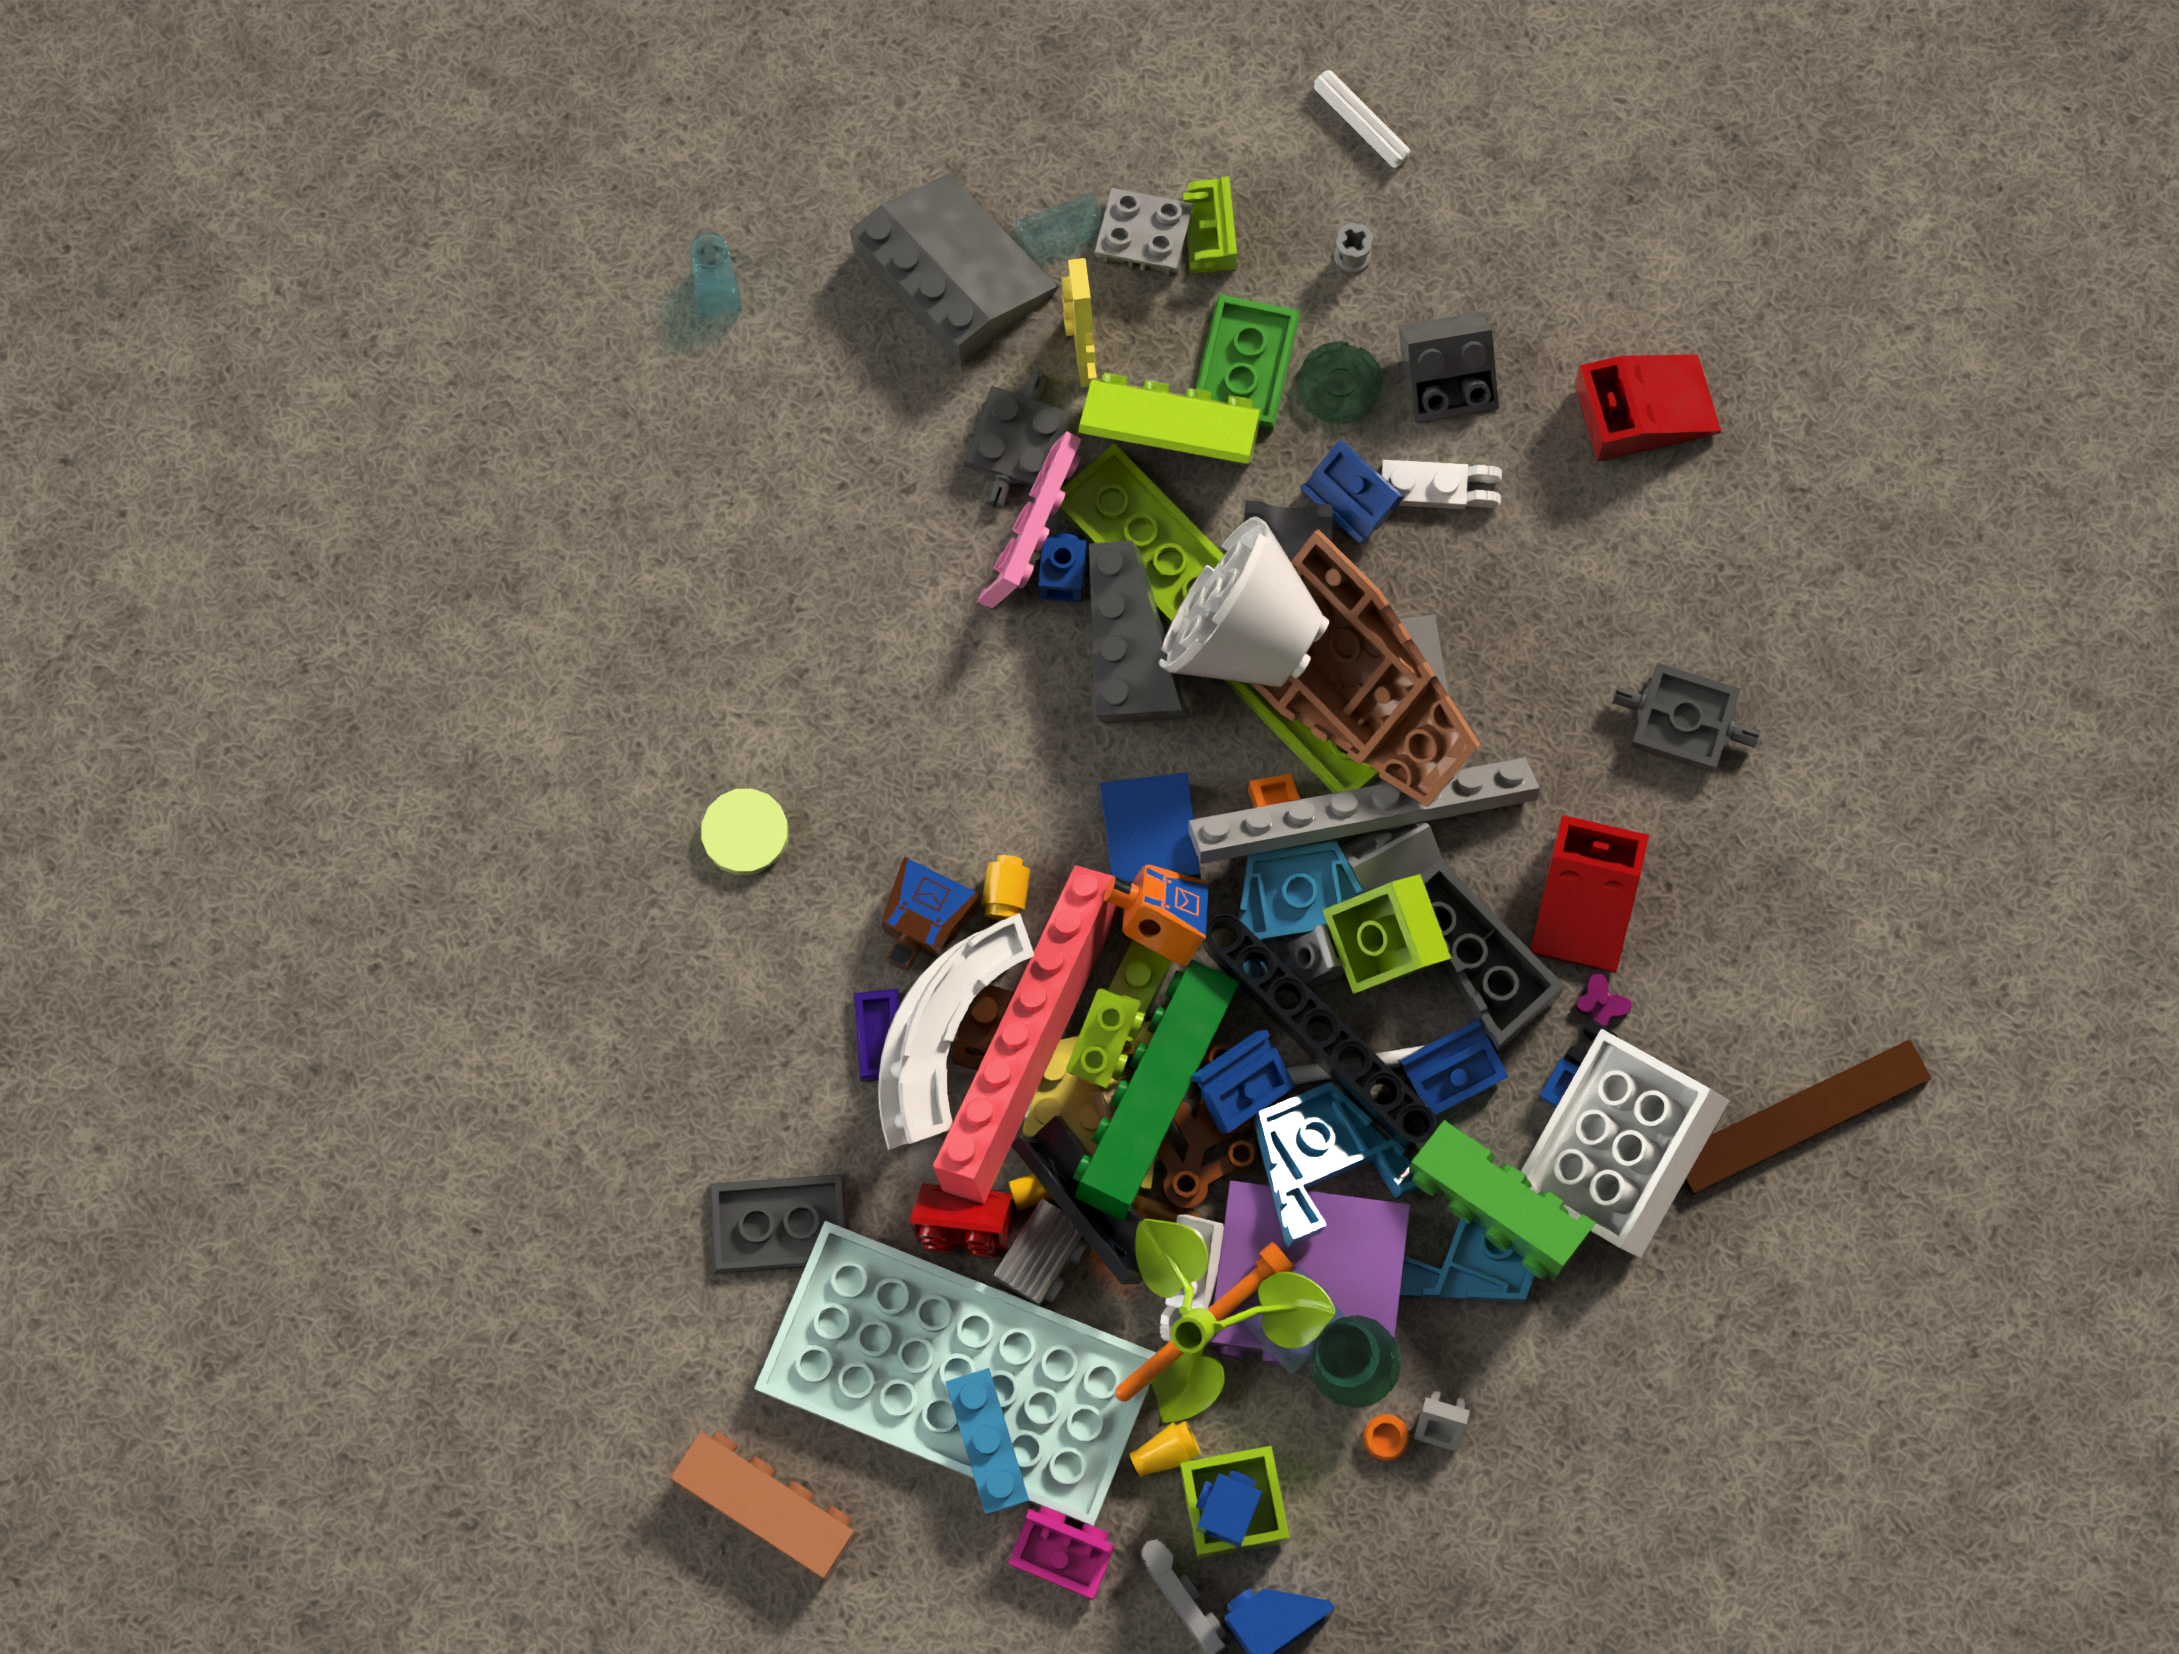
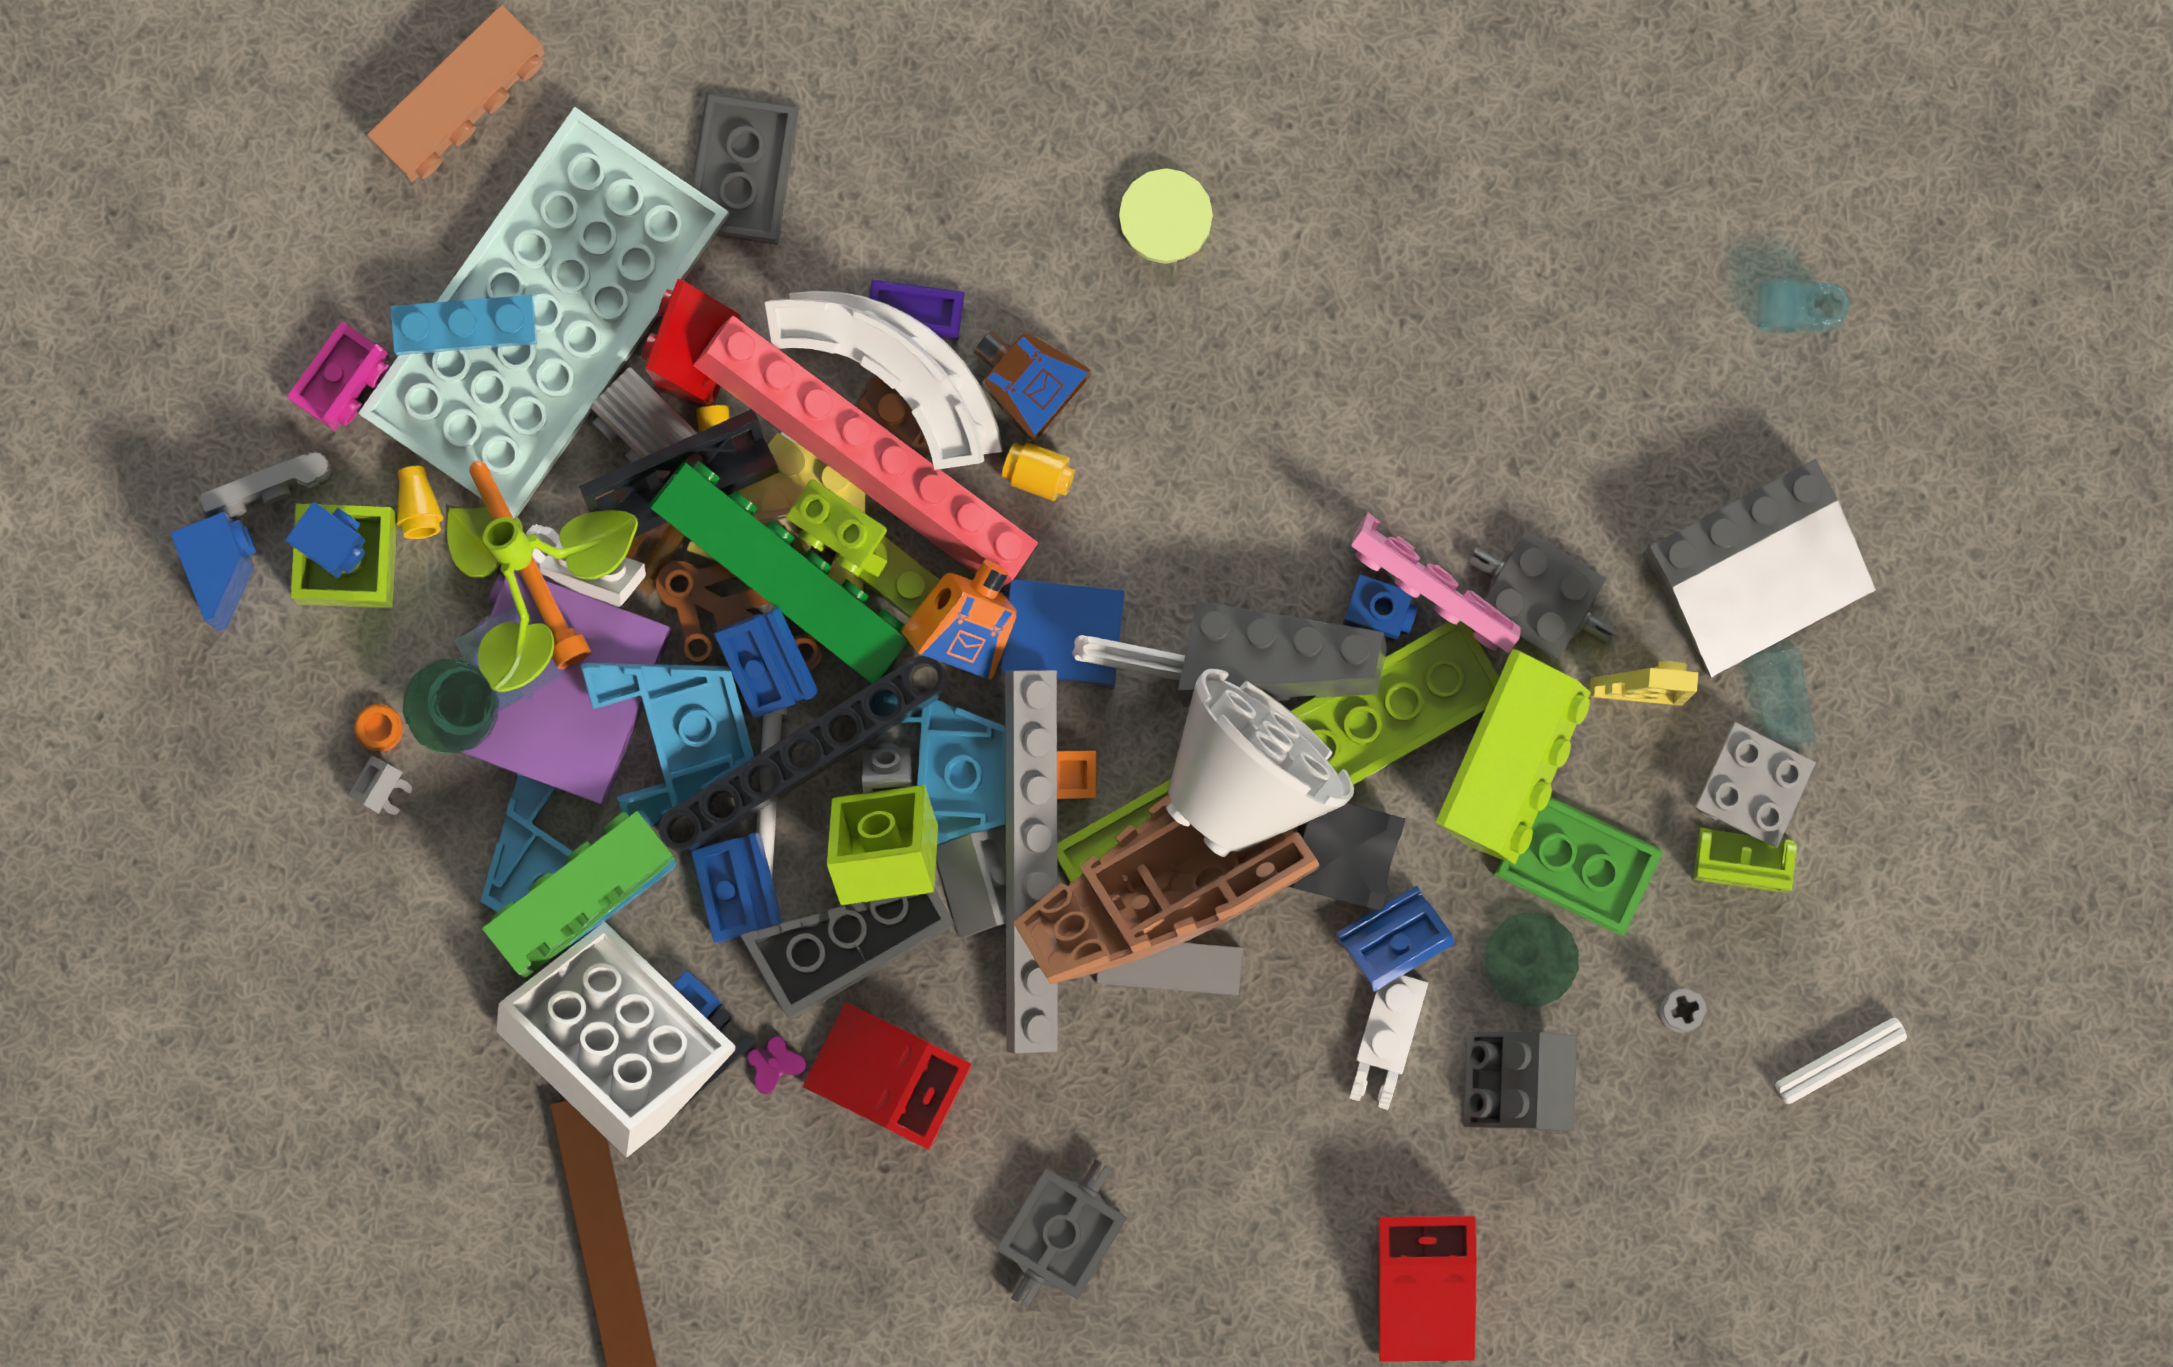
camera: 100 degrees right, 10 degrees up
(1160, 761) = (1128, 657): none -> white axle

